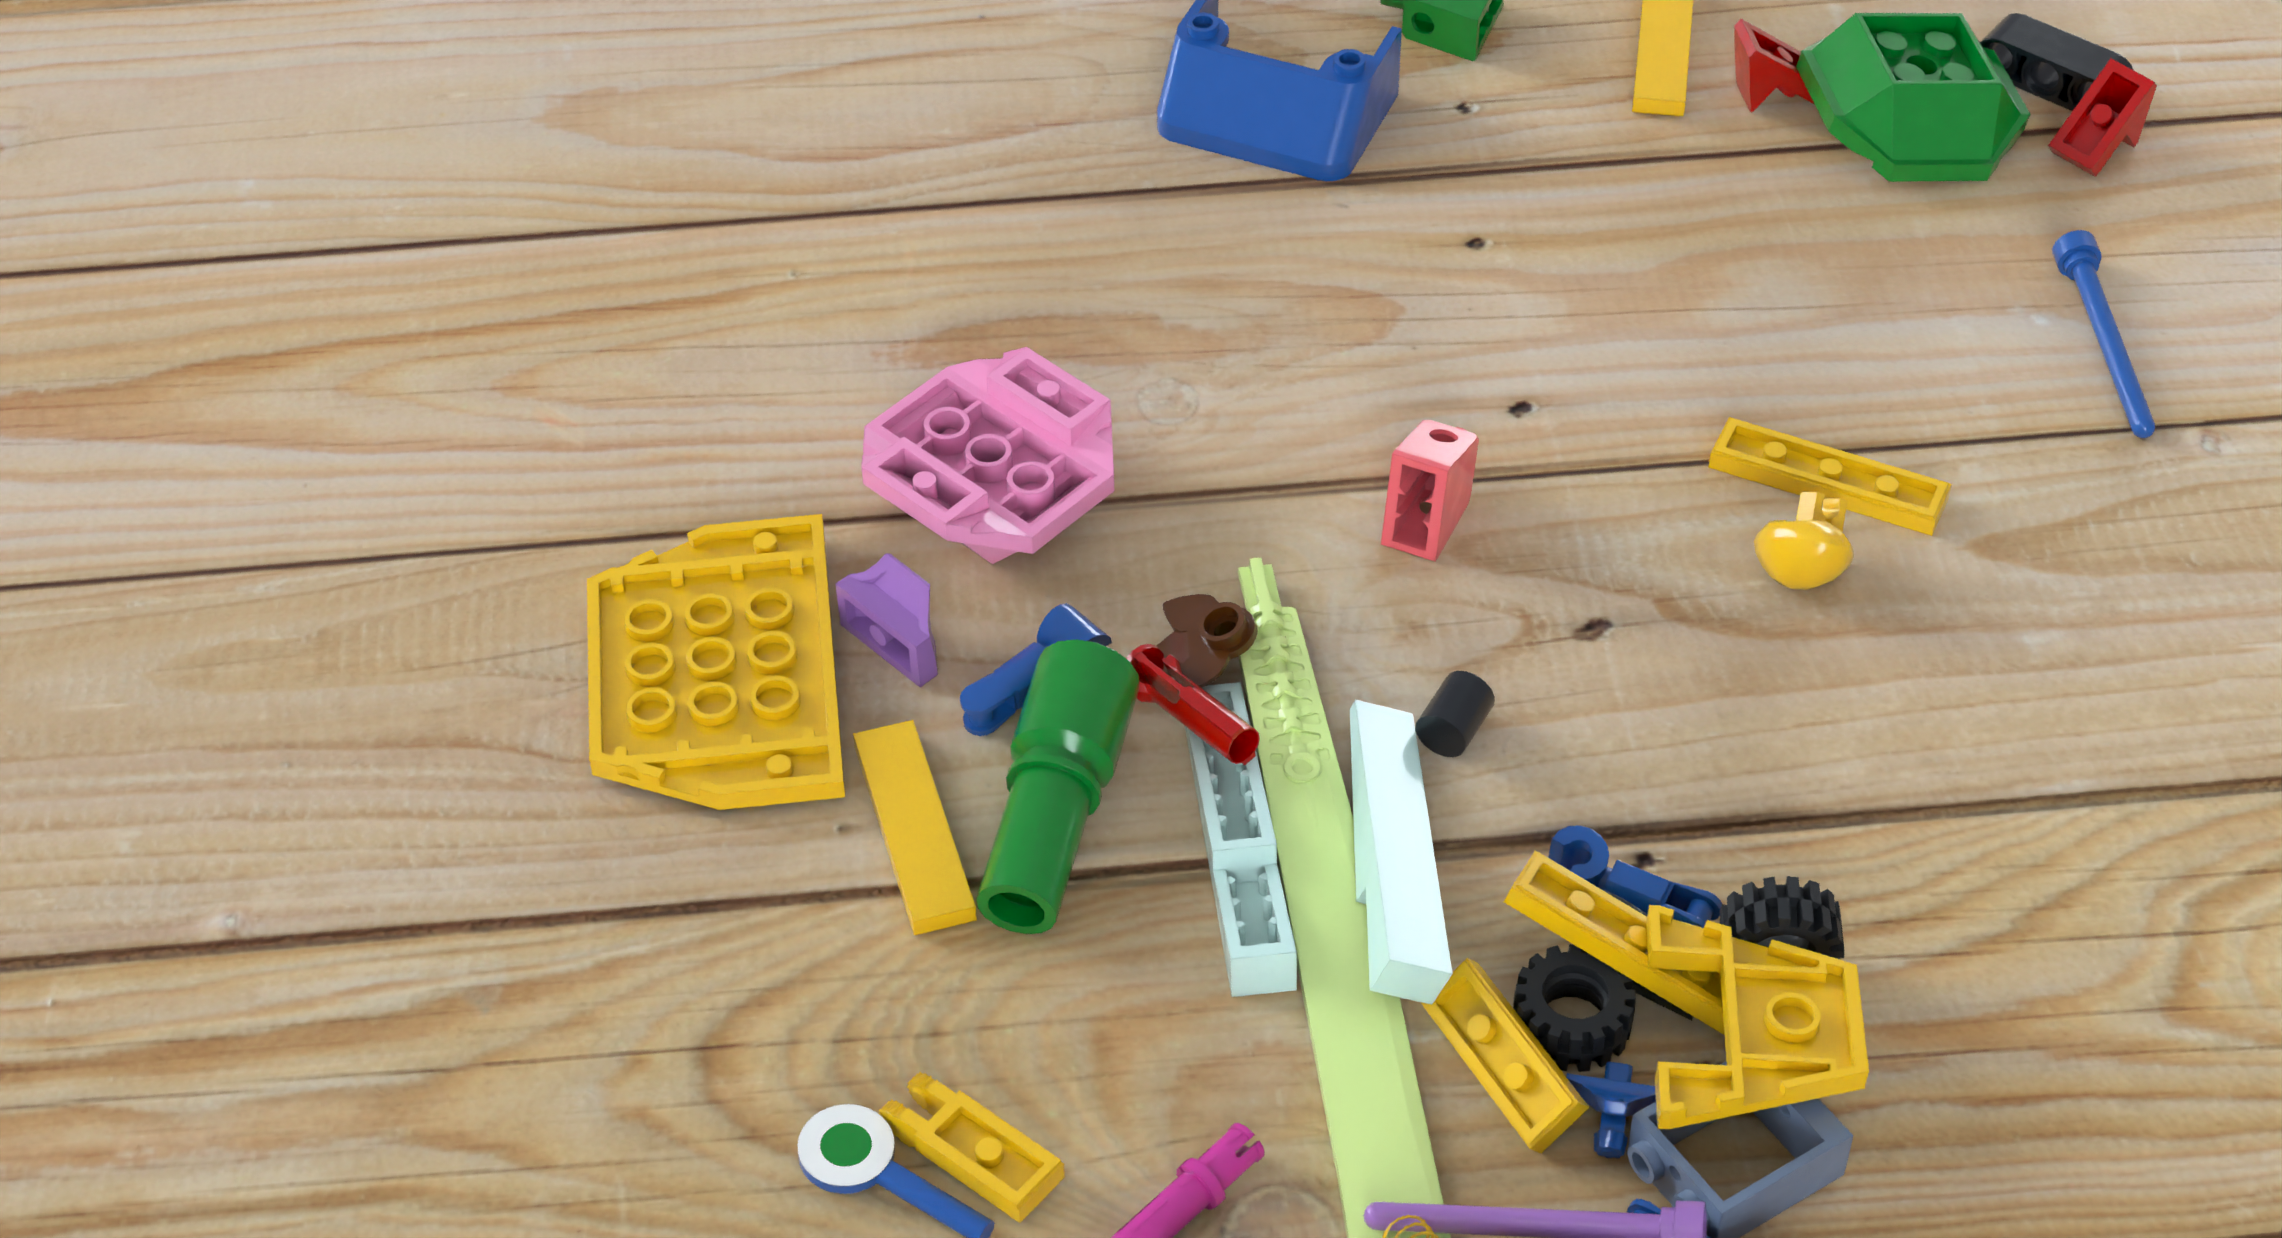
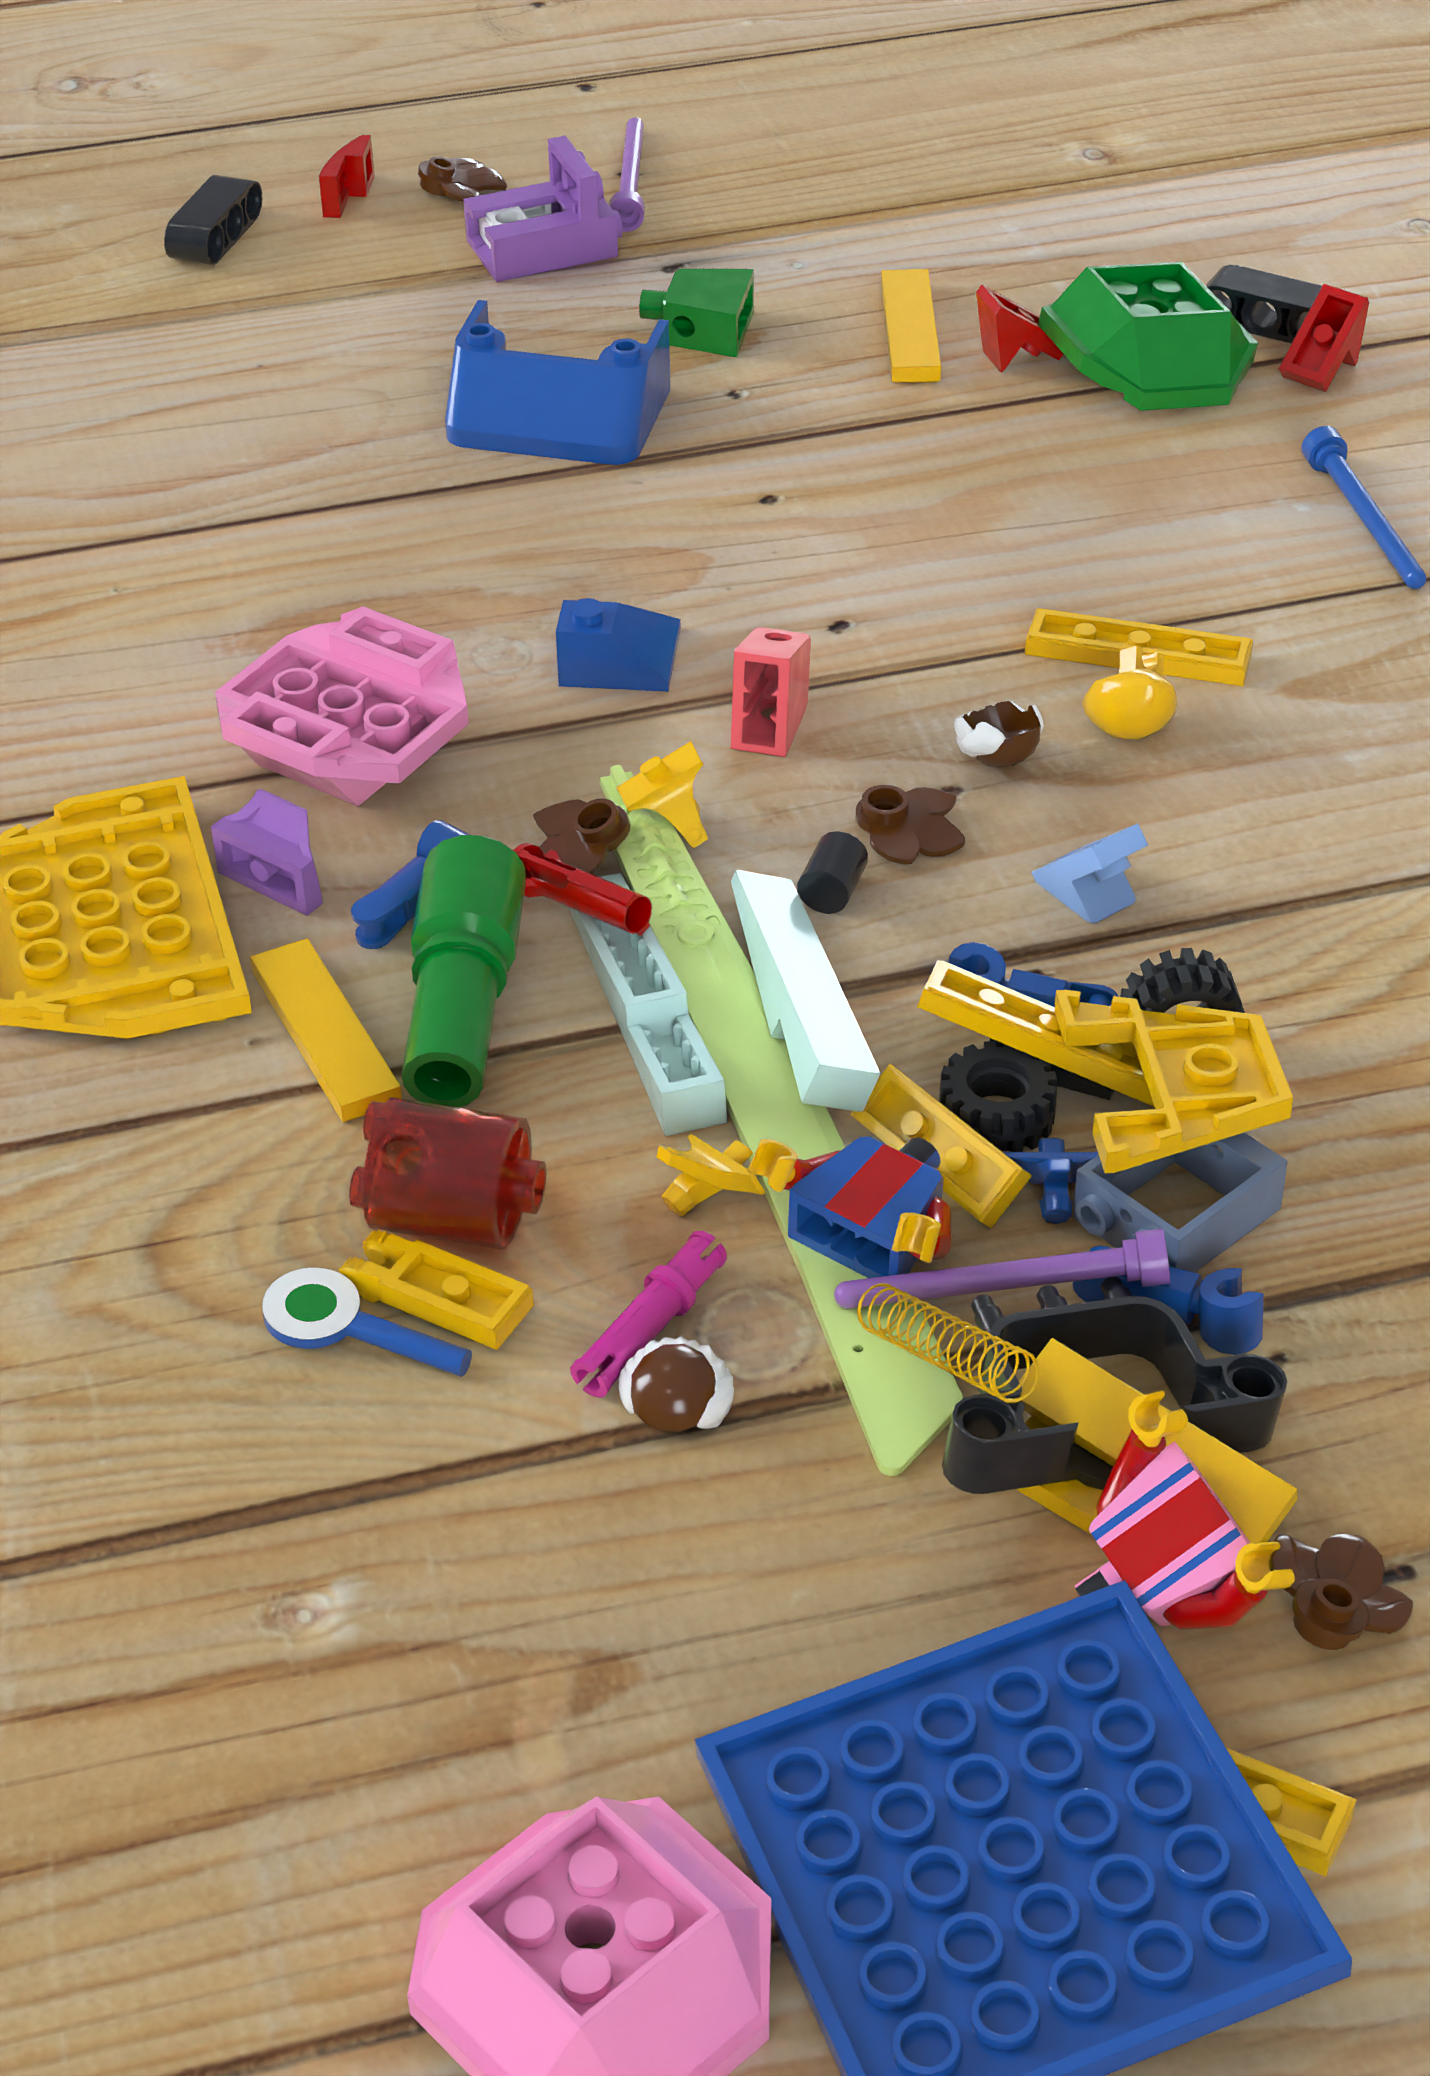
camera: 10 degrees left, 5 degrees down
(1023, 1026) = (447, 1173): none -> clear red cylinder
(1259, 1051) = (706, 1173): none -> yellow piece
(1283, 411) = (615, 646): none -> blue slope
(1301, 598) = (668, 790): none -> yellow piece
(1412, 1118) = (863, 1203): none -> torso
(1546, 662) = (908, 822): none -> reddish brown plate
(1659, 568) = (999, 733): none -> reddish brown hair
(1724, 753) = (1093, 875): none -> light blue slope

